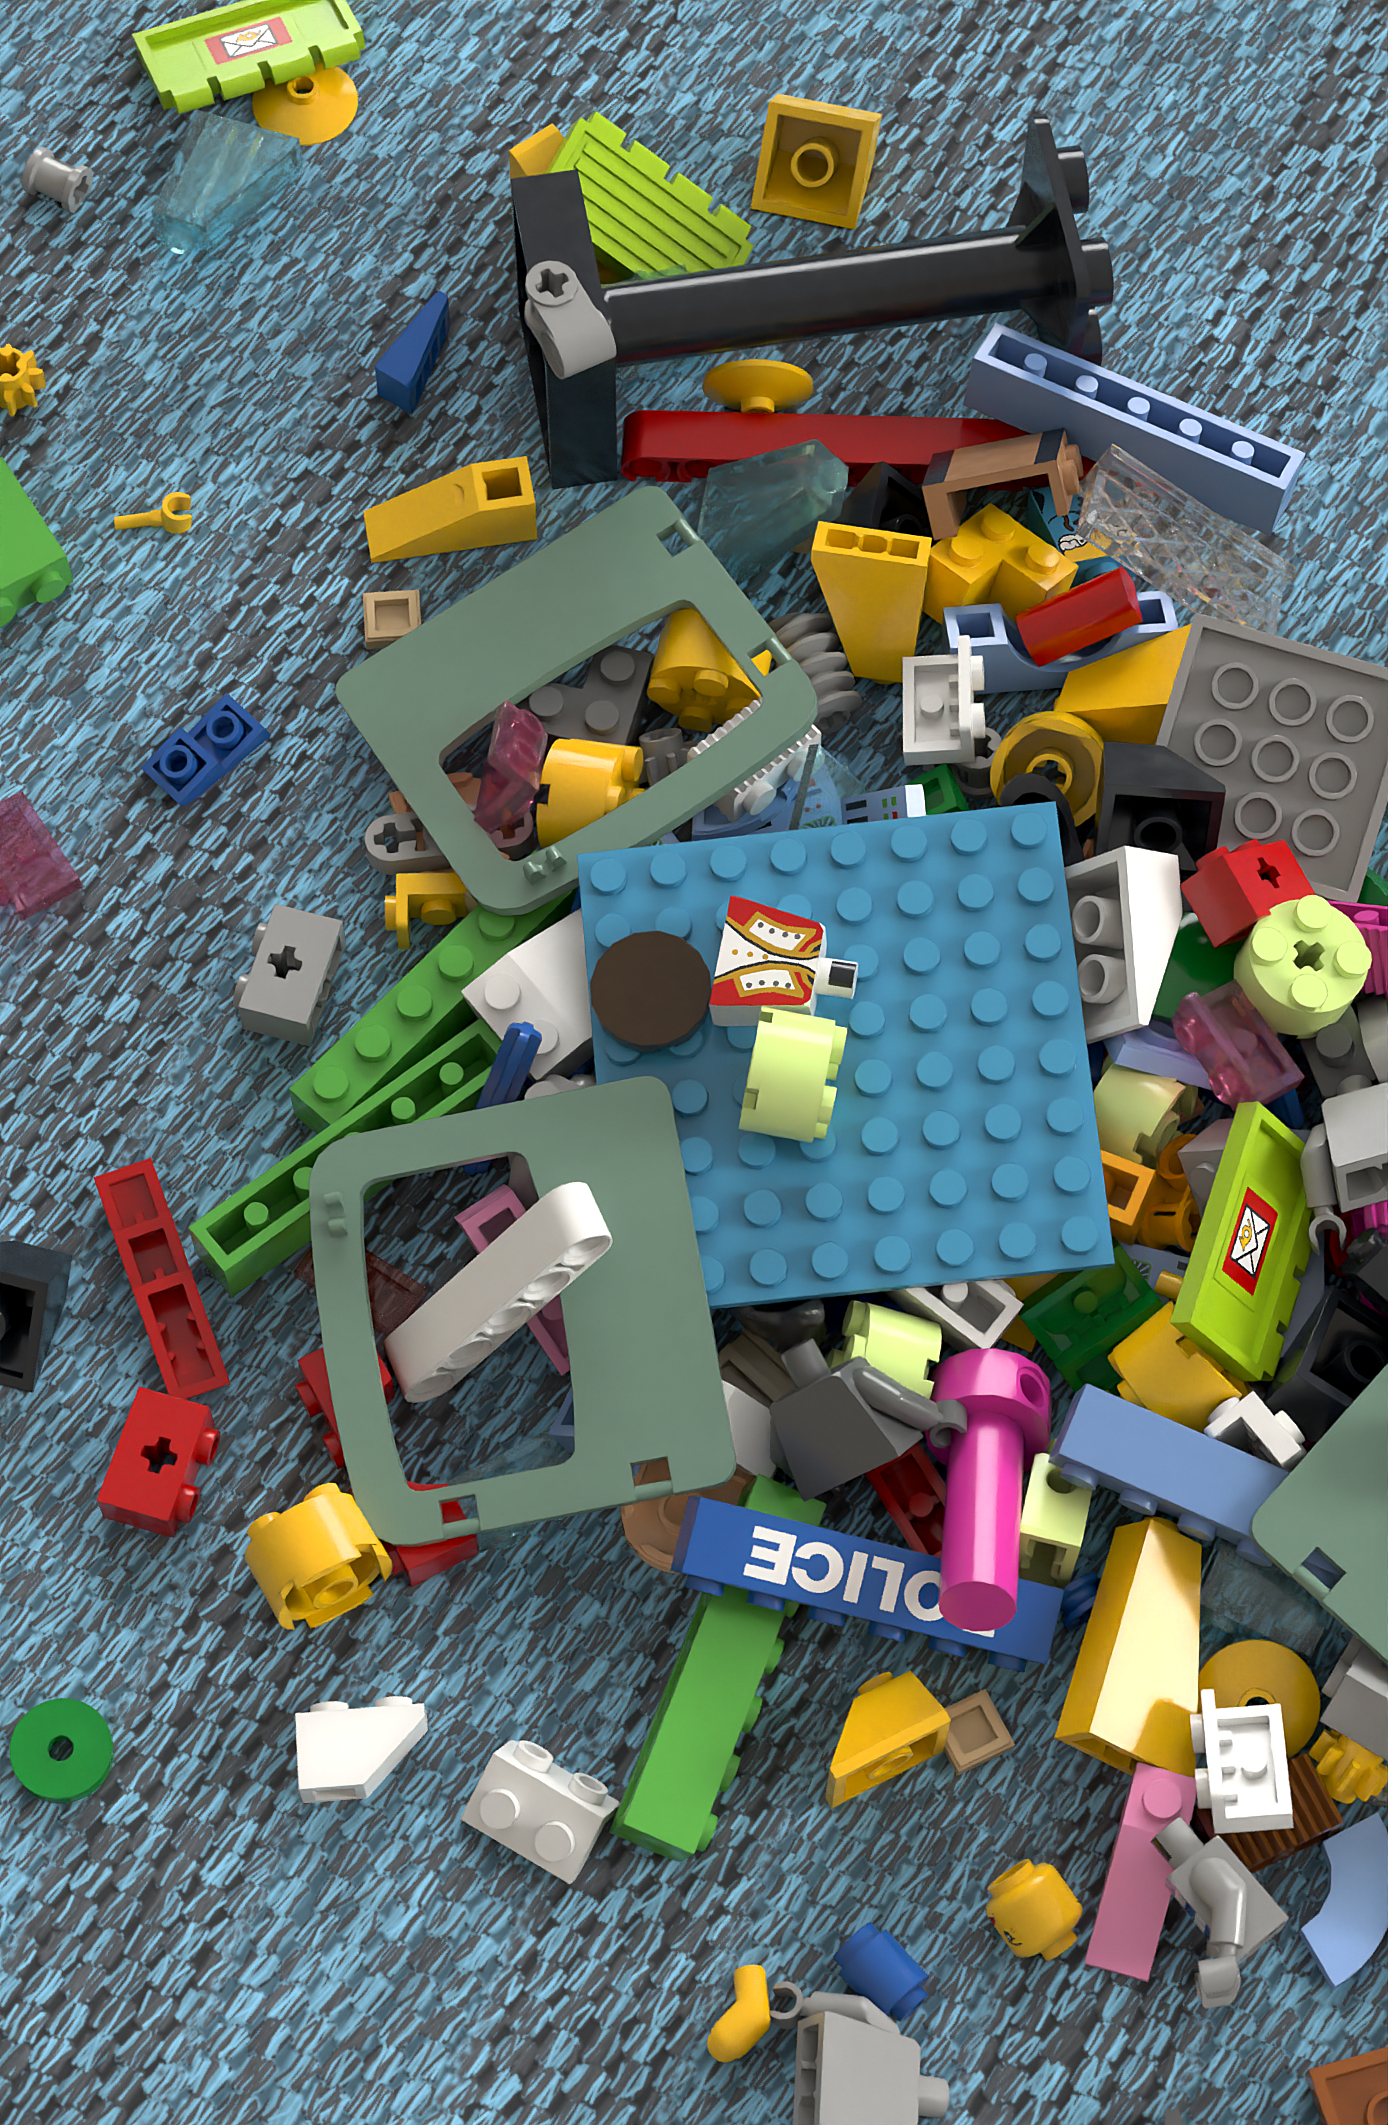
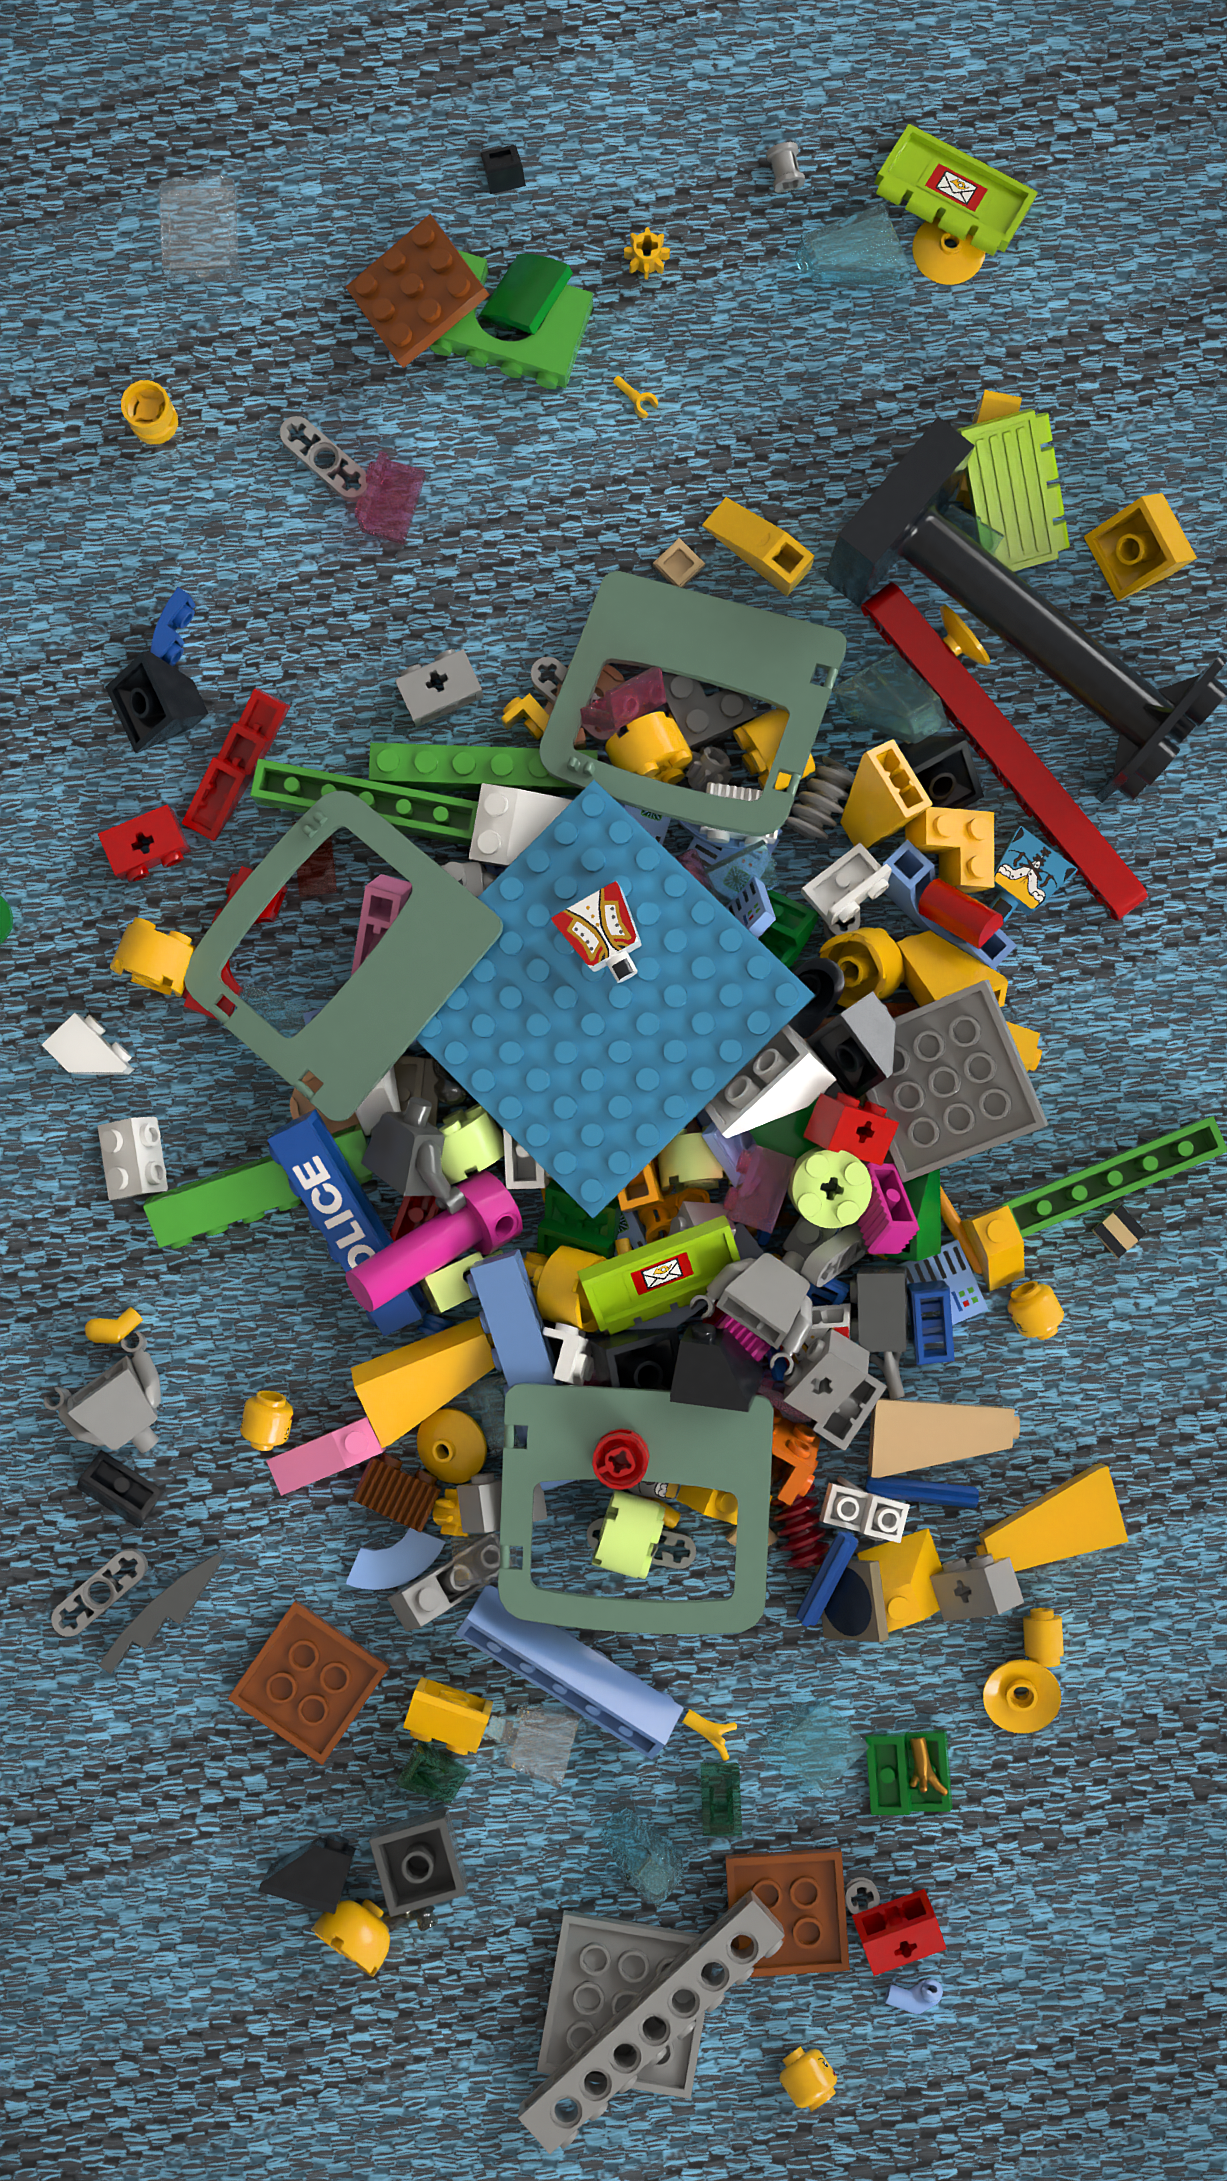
camera: 50 degrees right, 20 degrees up
(198, 759) = (526, 539): blue slope -> none
(410, 359) = (831, 444): blue slope -> none
(498, 1292) = (341, 935): white beam -> none
(507, 1074) = (454, 844): blue axle -> none
(565, 320) = (865, 526): light grey piece -> none
(651, 991) = (545, 879): dark brown tile -> none
(789, 1073) = (547, 987): yellowish green brick -> none
(882, 1972) = (181, 1375): blue brick -> none
(885, 1734) = (289, 1287): yellow slope -> none
(975, 1733) = (331, 1323): tan tile -> none
(995, 463) = (1008, 801): medium nougat panel -> none
(1179, 532) = (1059, 932): clear fence -> none
(1195, 450) = (1094, 852): medium blue brick -> none
(1223, 1903) = (322, 1514): light grey torso -> none
(1245, 1768) = (401, 1467): white bracket -> none

